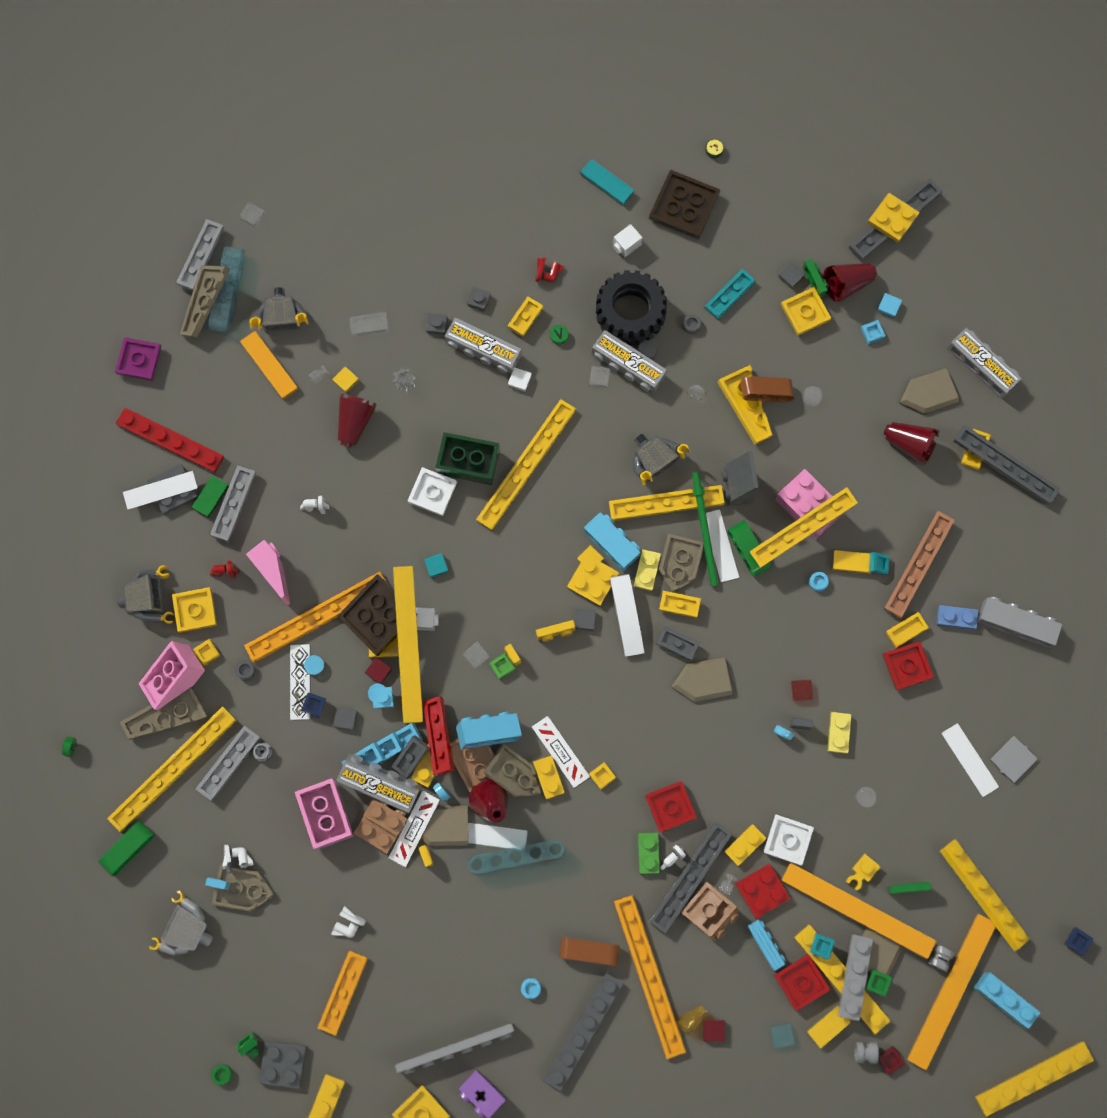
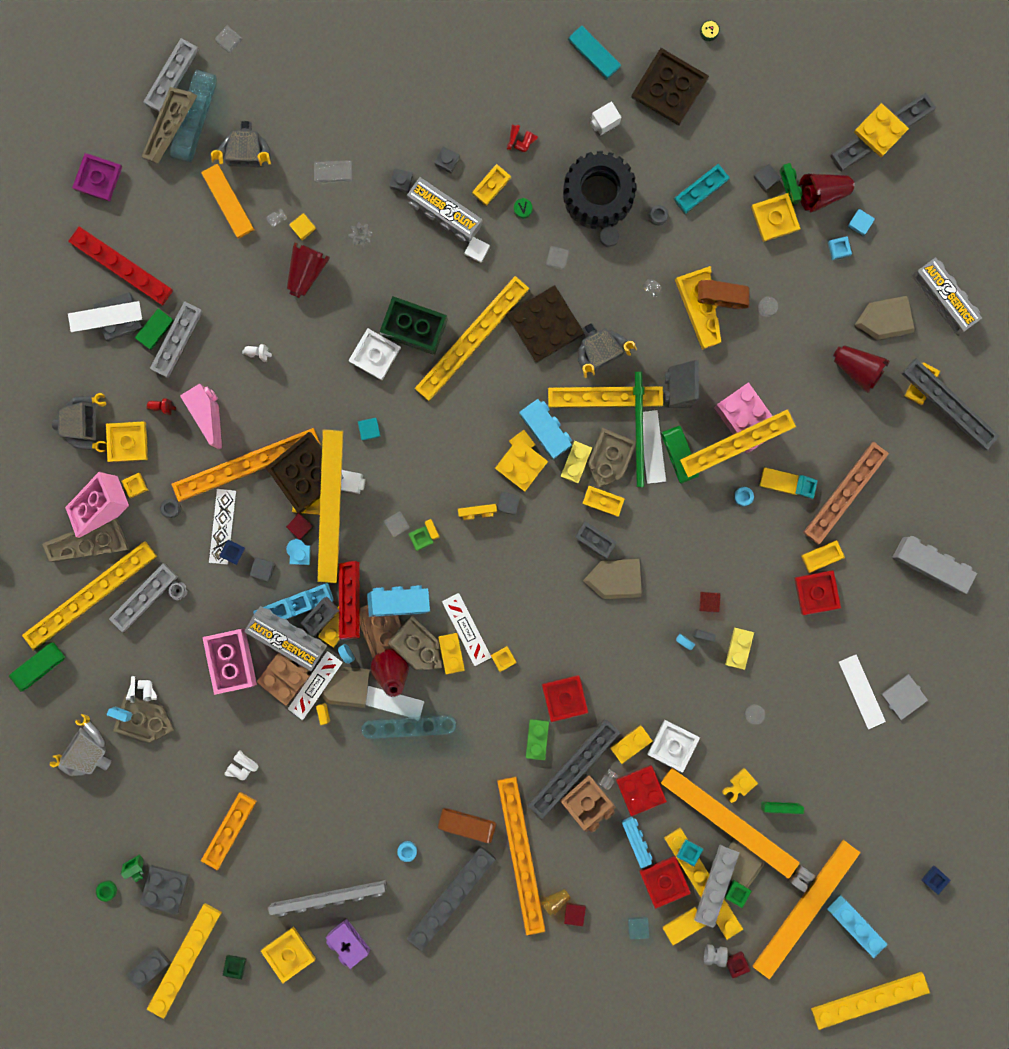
camera: 10 degrees right, 10 degrees up
(314, 665) = (237, 512): medium azure tile -> none
(596, 441) = (545, 324): none -> dark brown plate
(627, 615) = (549, 505): white slope -> none
(629, 362) = (588, 246): light grey brick -> none
(672, 858) = (557, 750): white piece -> none
(957, 617) = (874, 550): medium blue plate -> none
(984, 895) = (853, 824): yellow plate -> none

